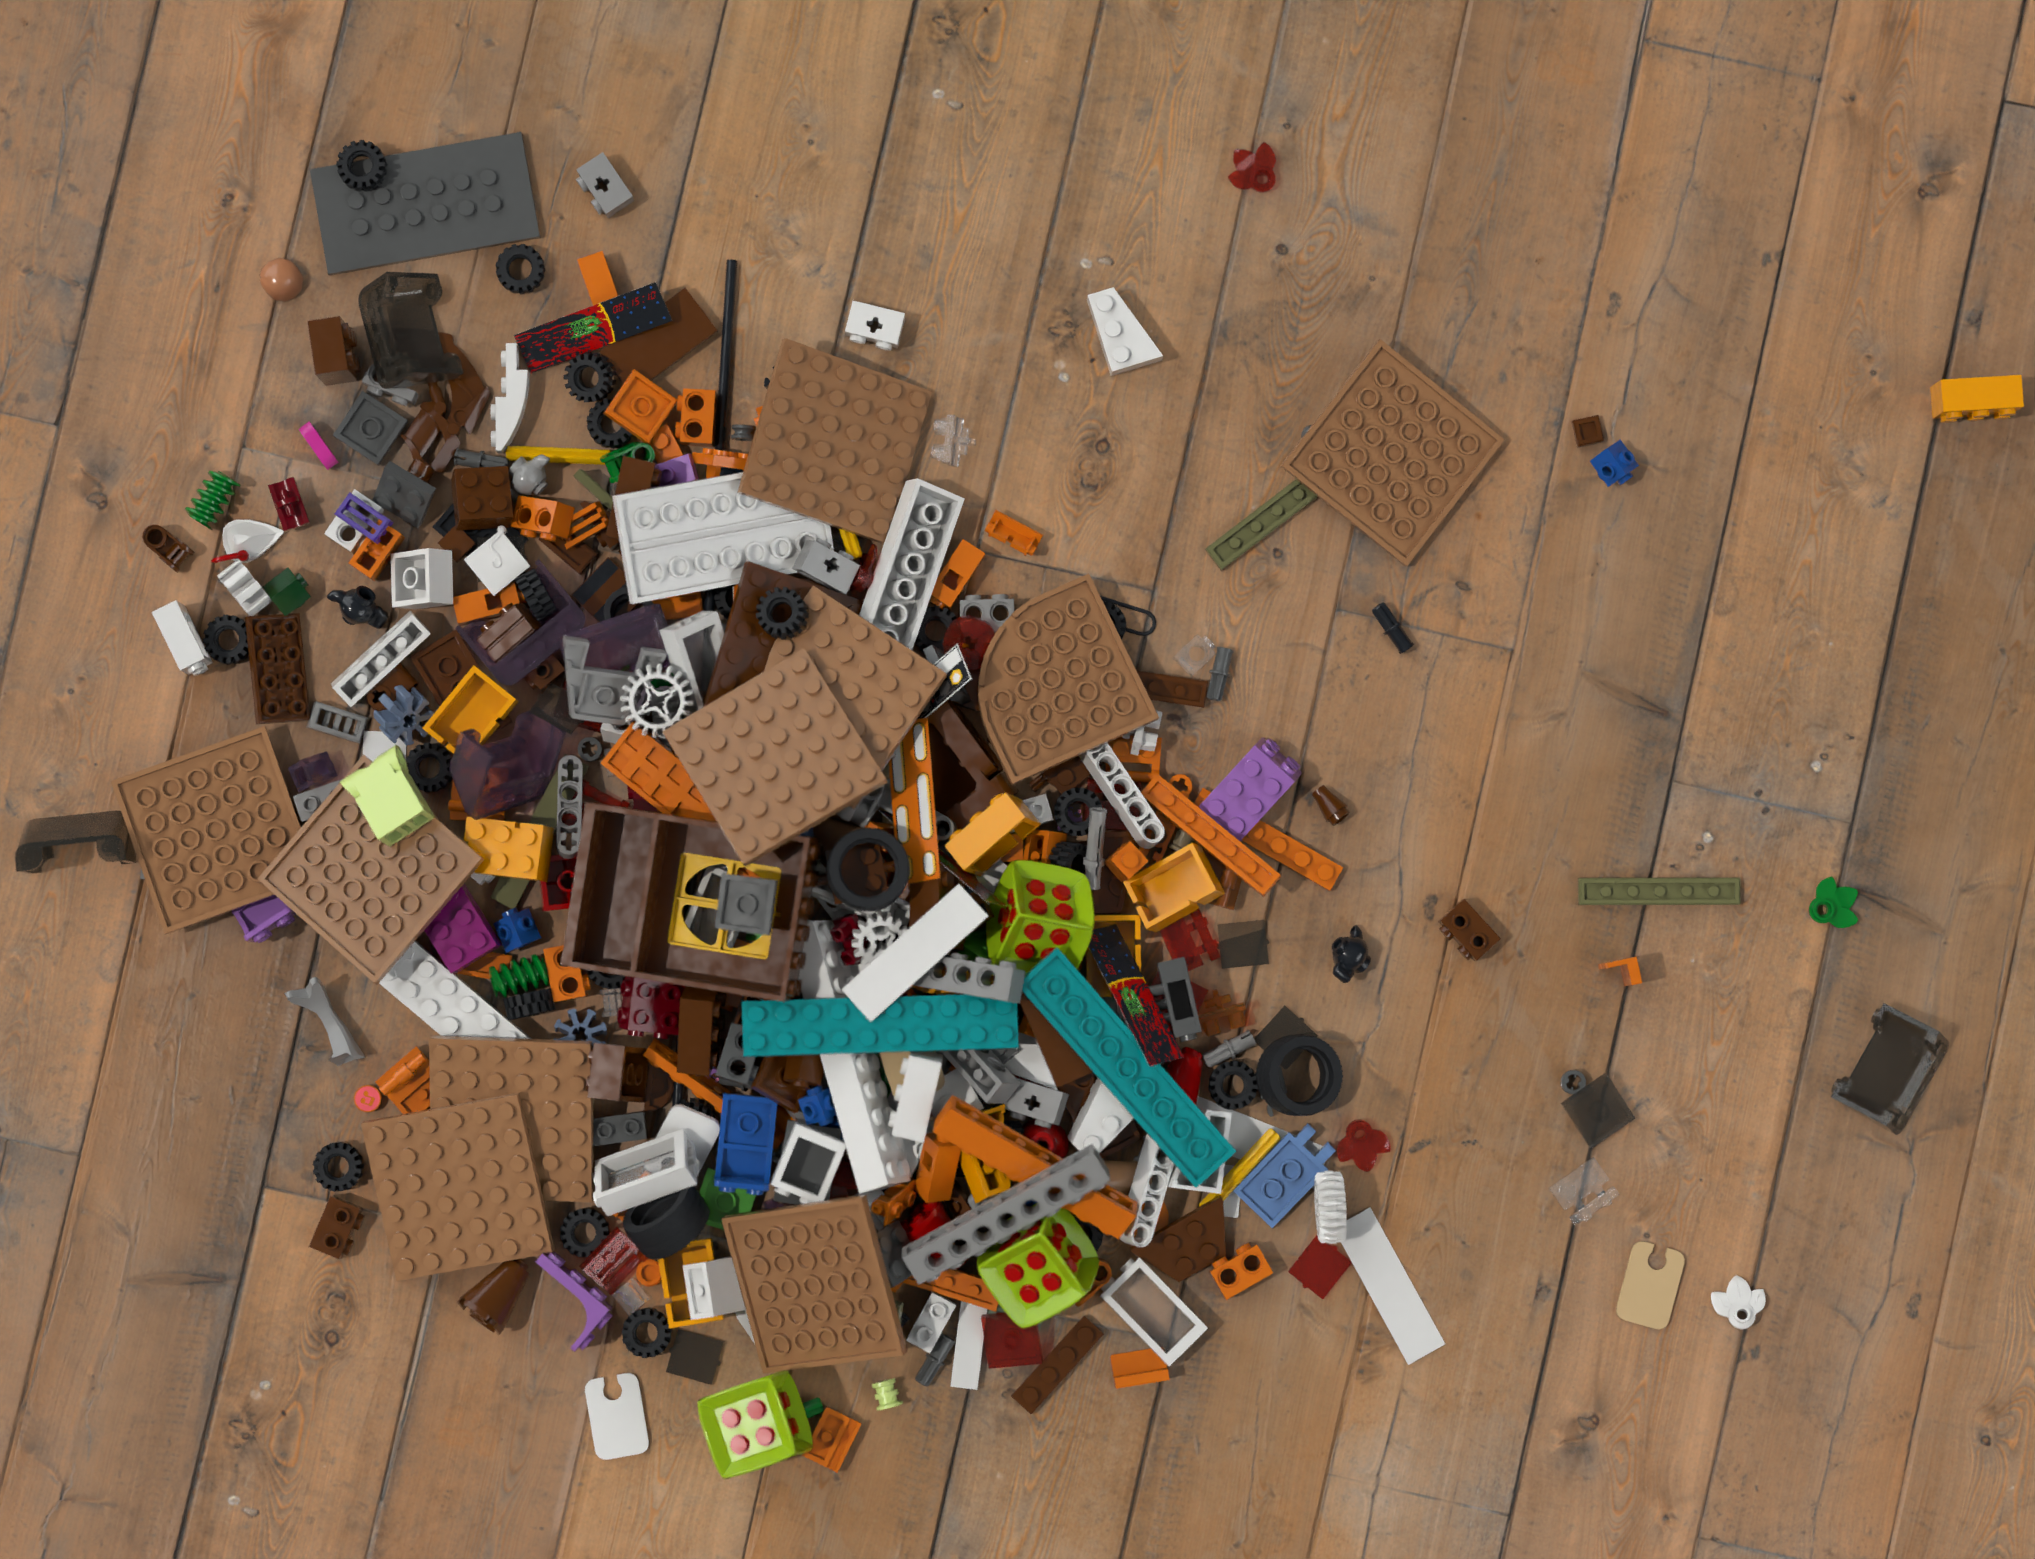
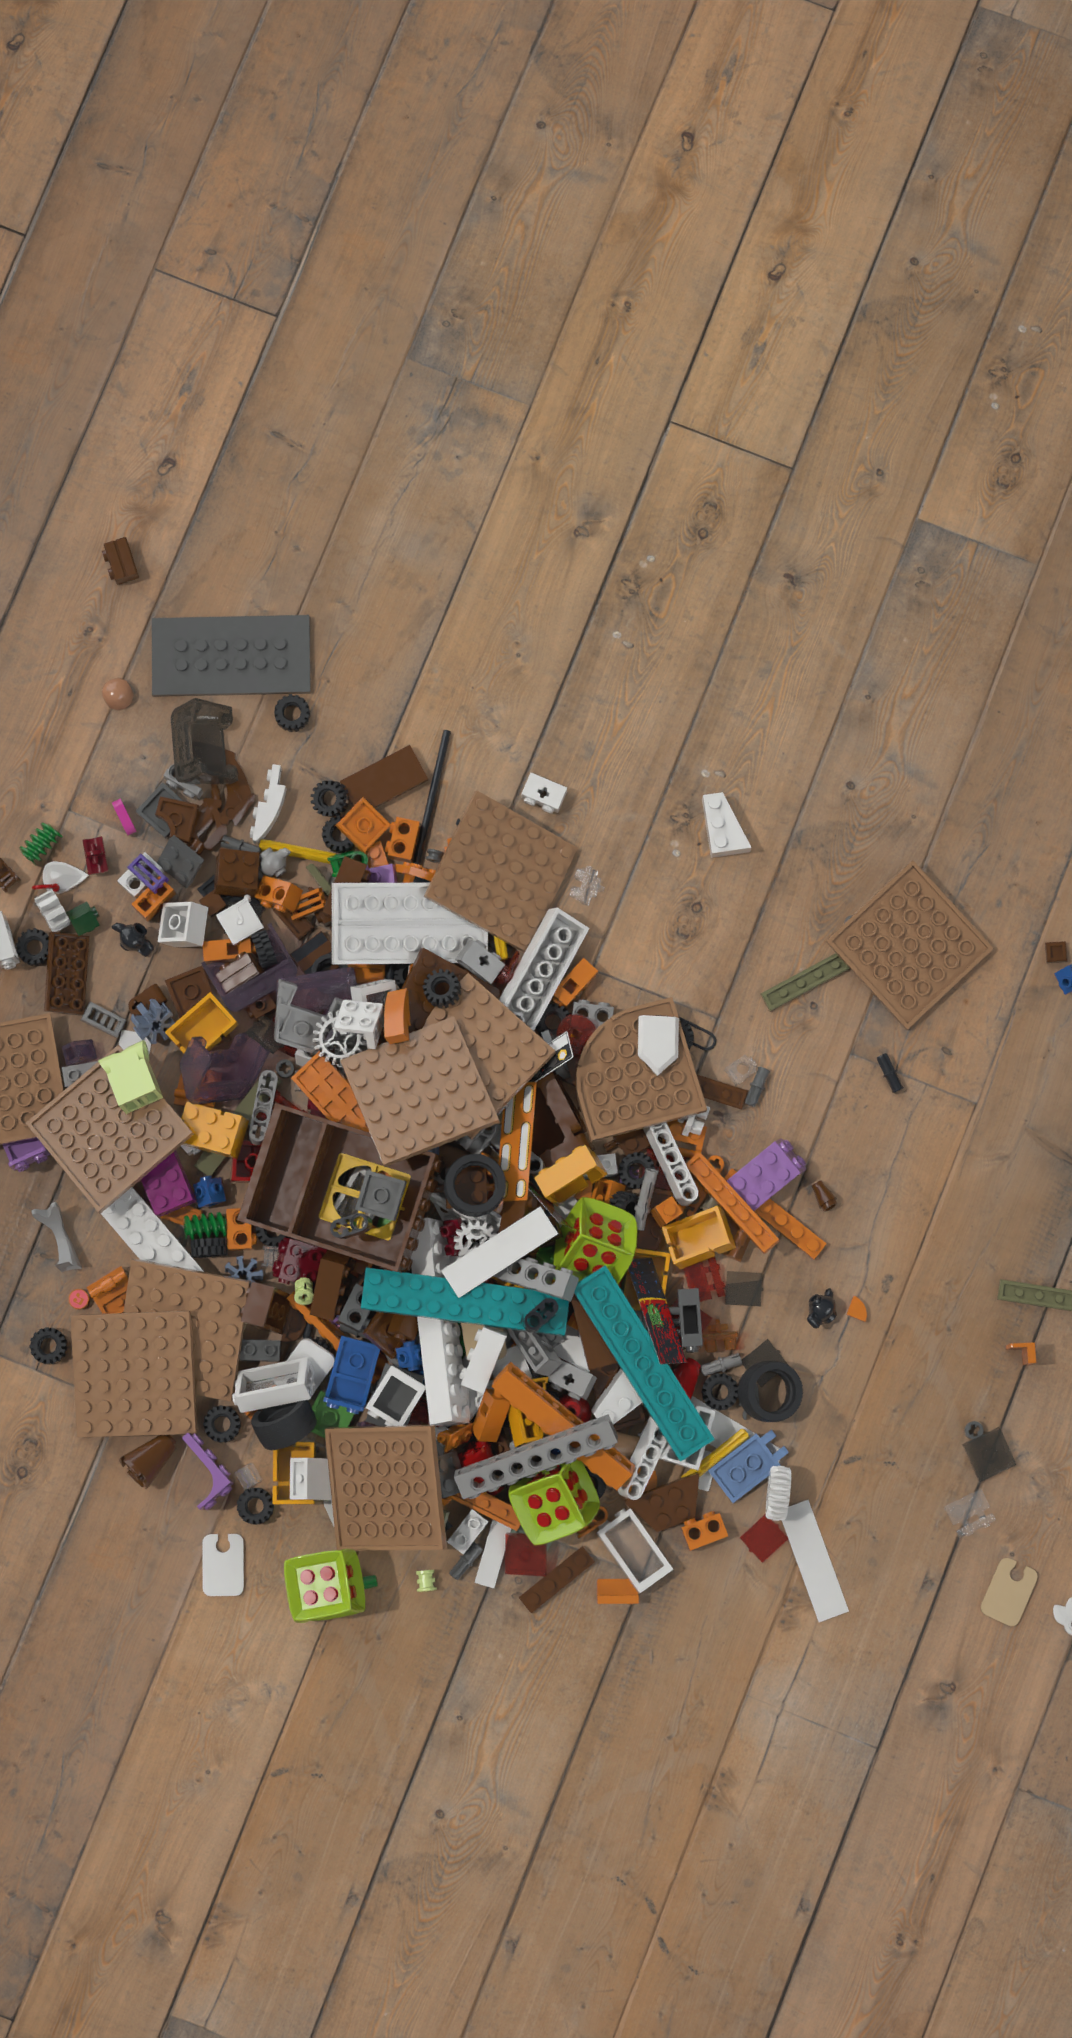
camera: 20 degrees right, 5 degrees down
(255, 98) = (120, 560): none -> reddish brown brick
(333, 351) = (146, 749): reddish brown brick -> none
(337, 1227) = (39, 1390): reddish brown brick -> none
(350, 154) = (184, 610): black tyre -> none
(380, 658) = (143, 978): white brick -> none
(392, 434) = (179, 817): none -> reddish brown tile
(441, 755) = (162, 1051): black tyre -> none
(593, 327) = (338, 762): black sticker -> none
(597, 277) = (348, 736): orange brick -> none
(600, 170) = (362, 651): light grey brick -> none
(609, 1257) = (237, 1444): clear red plate -> none
(648, 1273) = (264, 1461): orange tile -> none
(660, 1042) = (300, 1290): none -> yellowish green bush
(682, 672) = (361, 1018): none -> white bracket
(694, 1356) = (288, 1529): clear smoke piece -> none
(711, 960) = (350, 1220): none -> black beam
(728, 660) = (397, 1016): none -> orange slope
(832, 1439) = (380, 1607): orange plate -> none
(980, 1018) = (540, 1308): none -> black beam
(1019, 535) = (623, 960): orange hinge -> none
(1079, 636) = (658, 1041): none -> white tile
(1251, 166) = (839, 721): clear red plate -> none
(1362, 1149) = (810, 1454): clear red plate -> none
(1396, 948) = (857, 1309): none -> orange tile
(1468, 931) = (912, 1304): reddish brown brick -> none

